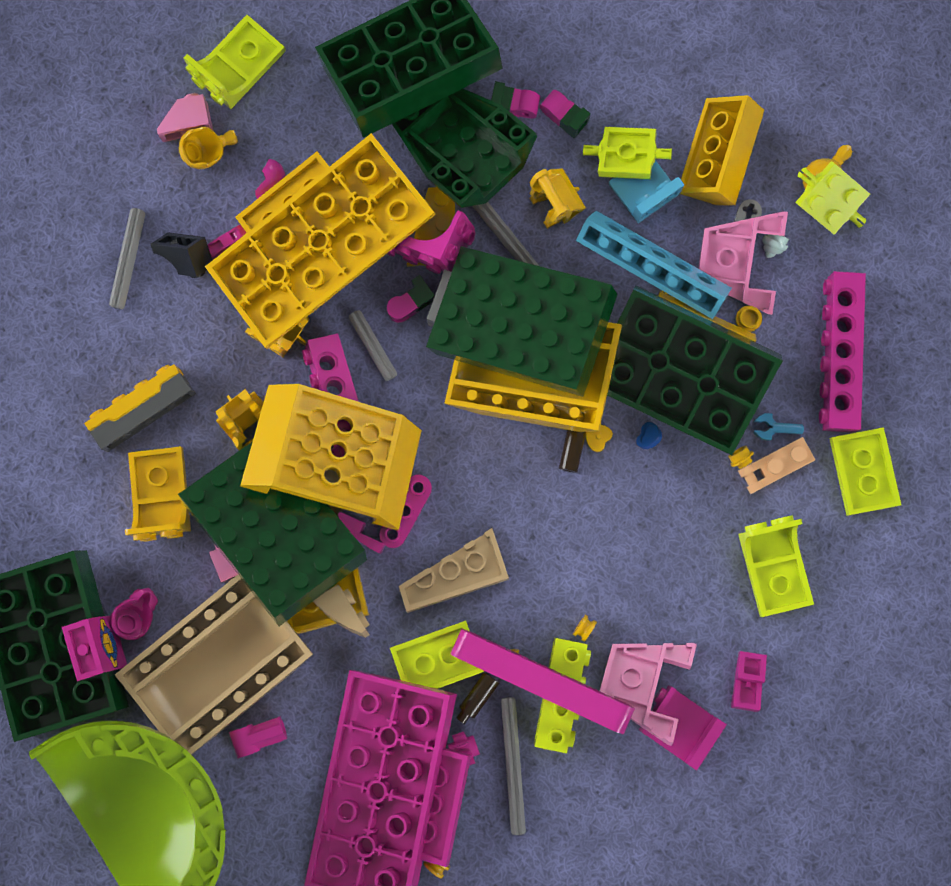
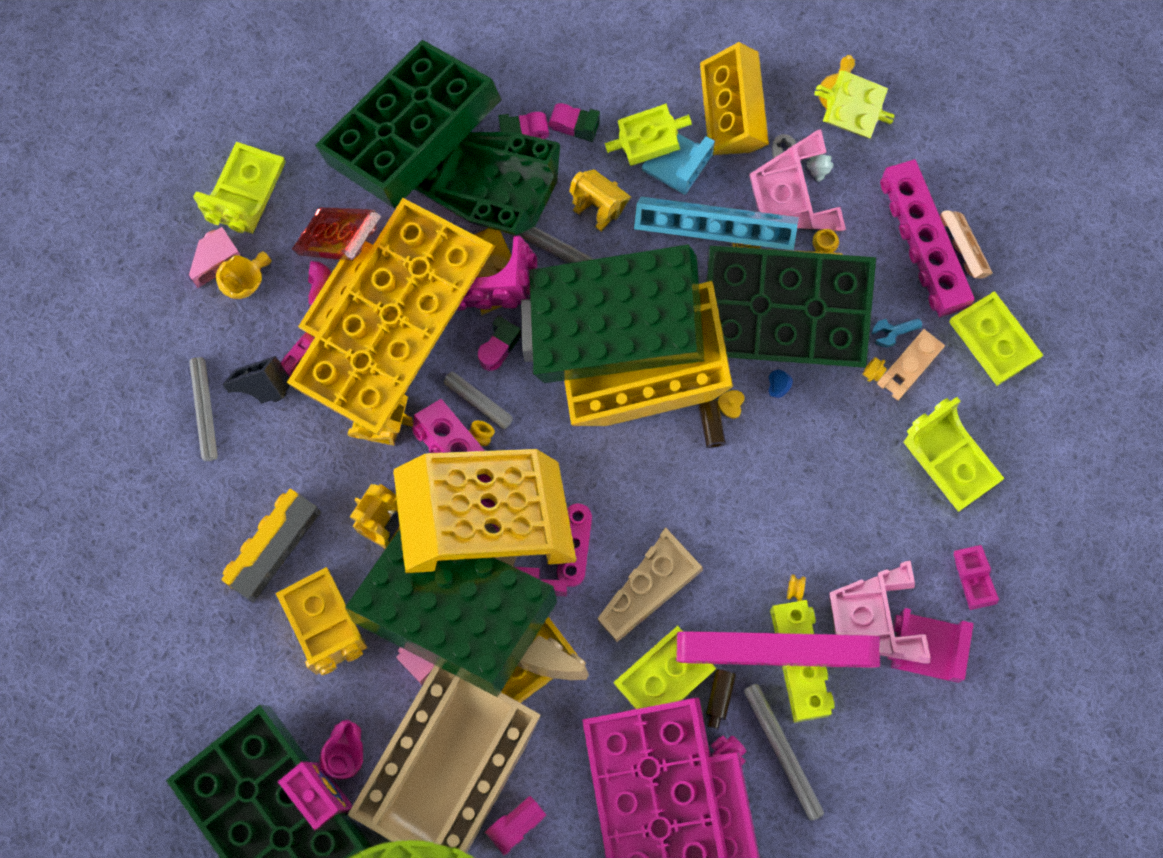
camera: 20 degrees left, 10 degrees down
(301, 142) = (337, 233): none -> clear red plate
(363, 377) = (482, 432): none -> yellow bush
(877, 372) = (966, 244): none -> light nougat plate

